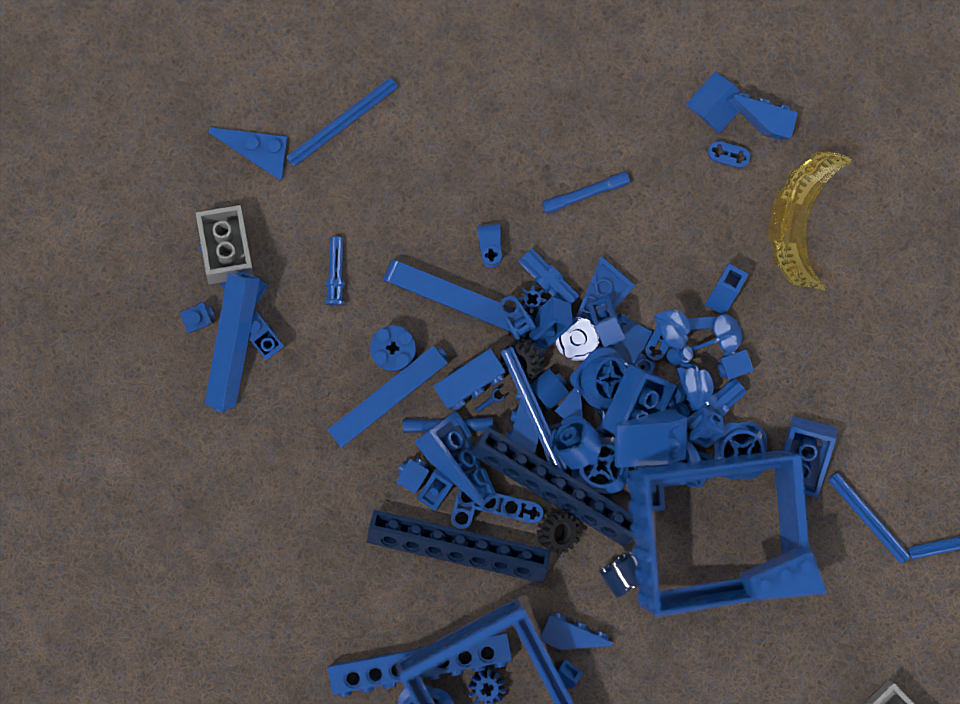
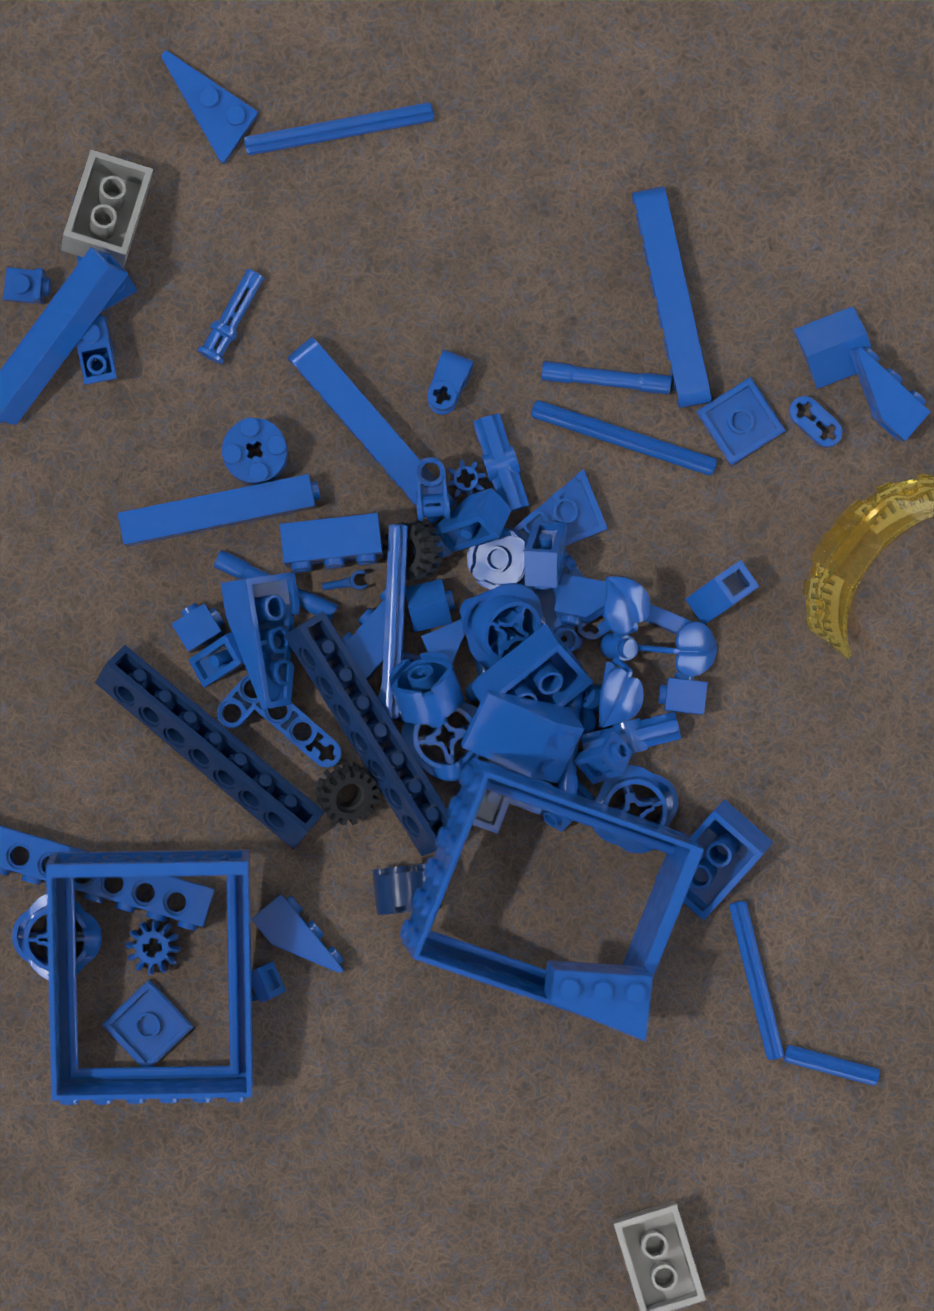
camera: 25 degrees right, 0 degrees up
(602, 122) = (672, 297): none -> blue beam
(616, 224) = (624, 438): none -> blue axle
(642, 337) = (579, 600): none -> blue slope
(682, 177) = (740, 421): none -> blue tile

